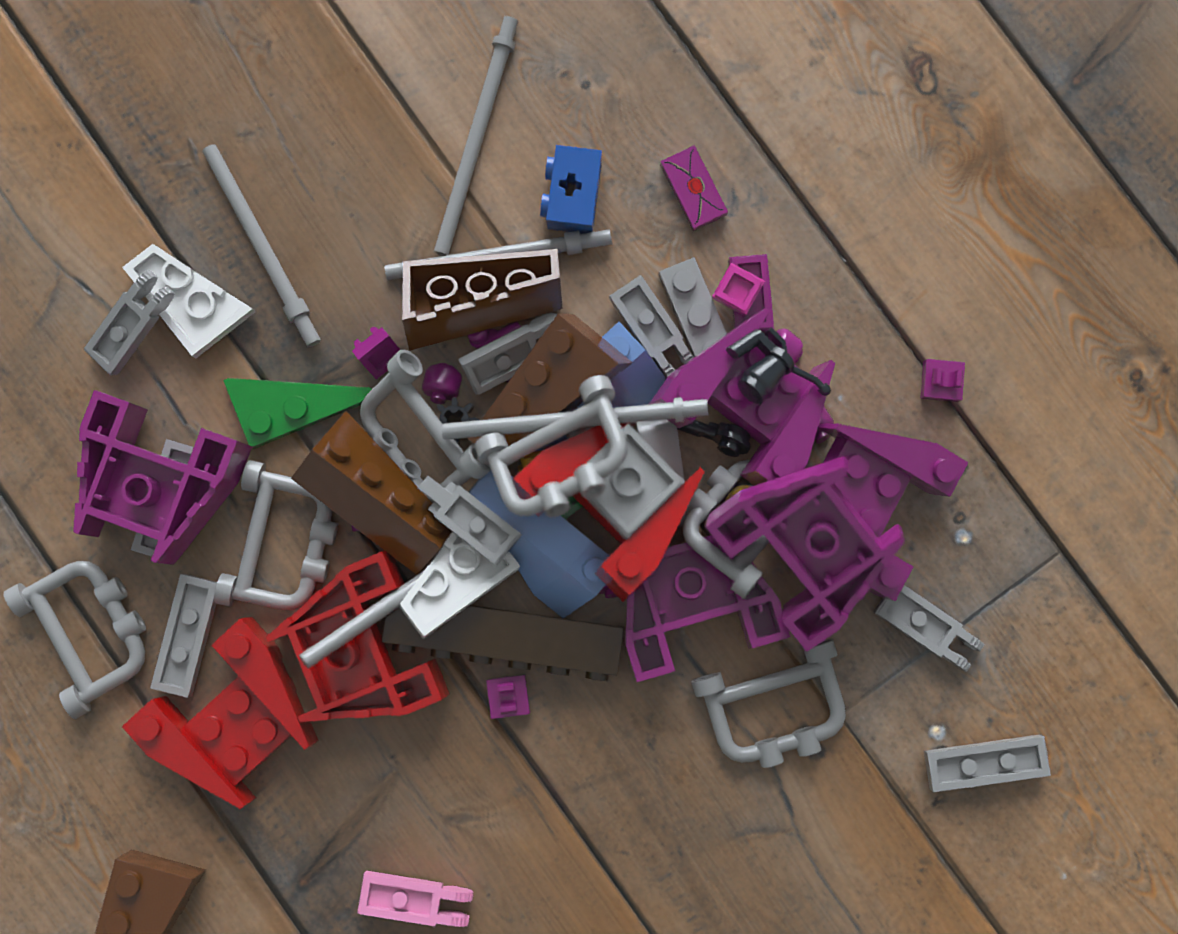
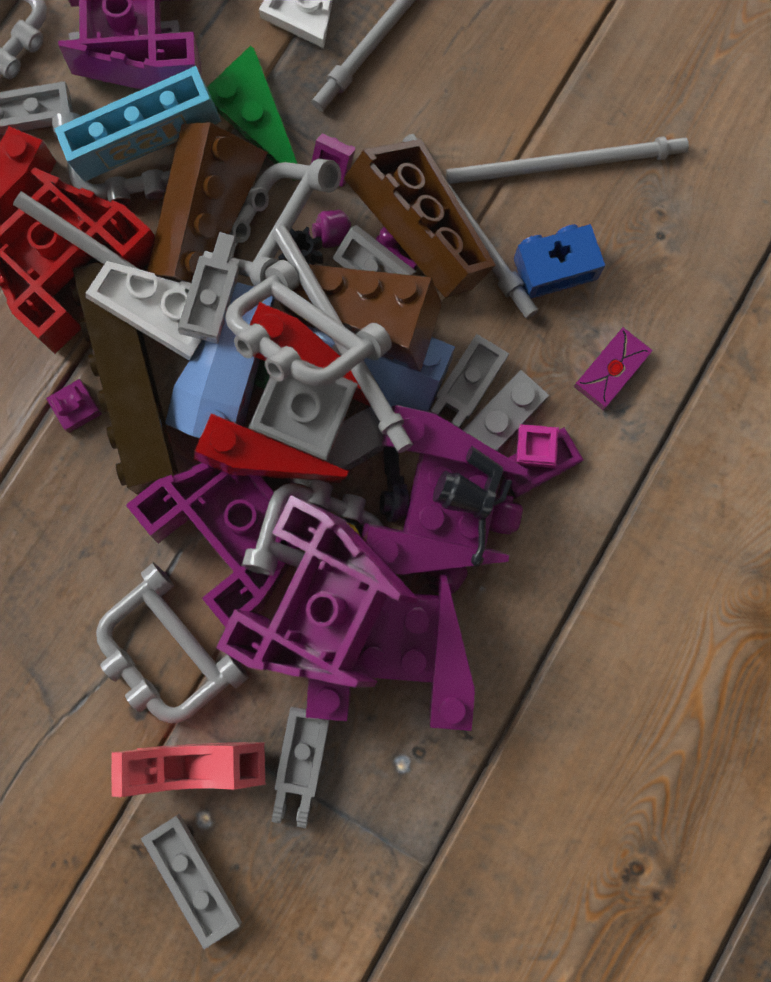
camera: 60 degrees right, 5 degrees down
(269, 520) = (136, 124): none -> medium azure brick
(890, 720) = (188, 767): none -> coral arch
(942, 380) = (542, 677): magenta tile -> none

